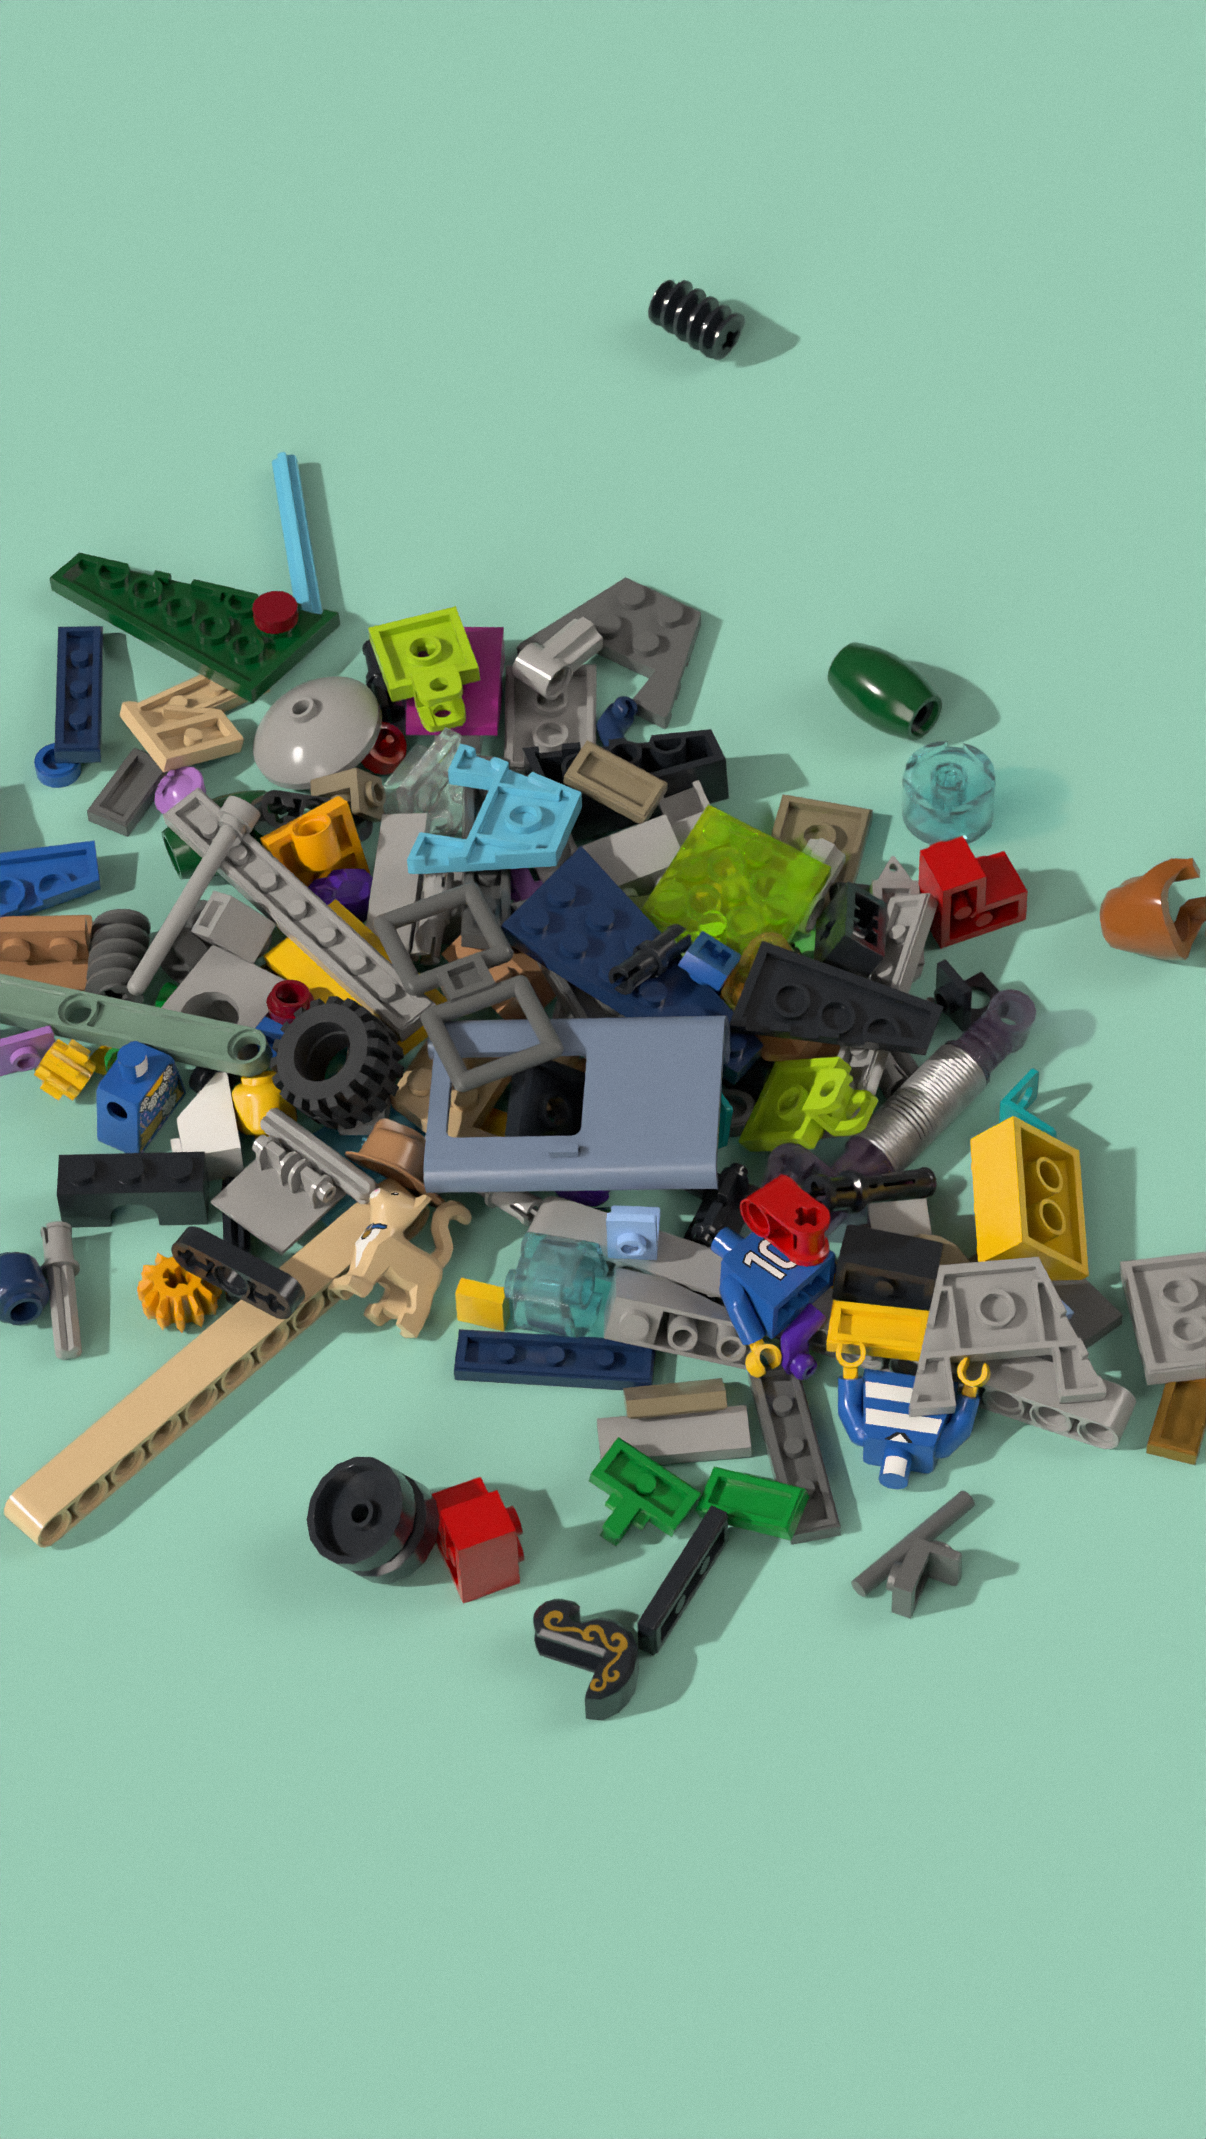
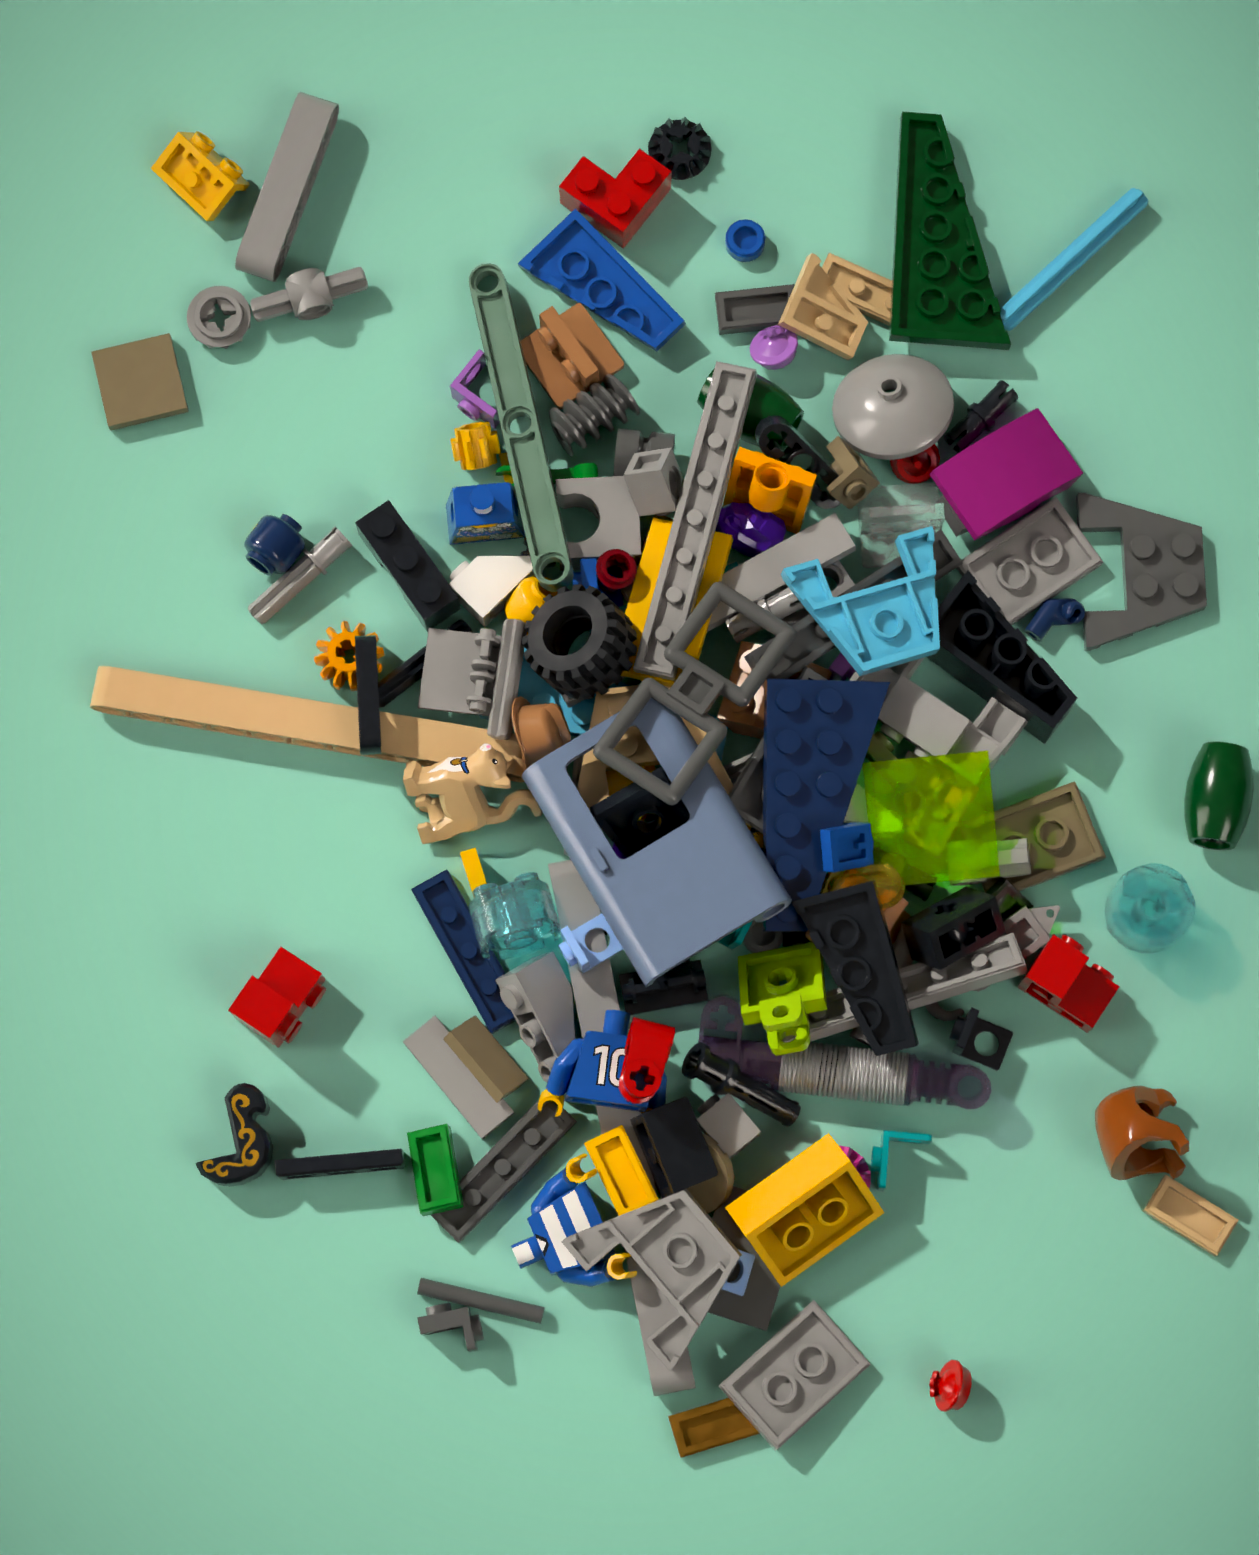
camera: 55 degrees right, 25 degrees up
(79, 694) = (814, 210): dark blue tile -> none
(236, 819) = (735, 422): light grey piece -> none
(275, 612) = (974, 300): dark red tile -> none
(373, 1520) = (235, 926): black wheel -> none
(432, 679) = (978, 464): lime plate -> none
(552, 665) = (1068, 533): light grey piece -> none
(615, 783) = (970, 665): dark tan tile -> none
(640, 1493) = (391, 1087): green hinge -> none
(650, 959) = (811, 805): black pin -> none
(796, 1343) = (578, 1117): dark purple arm -> none

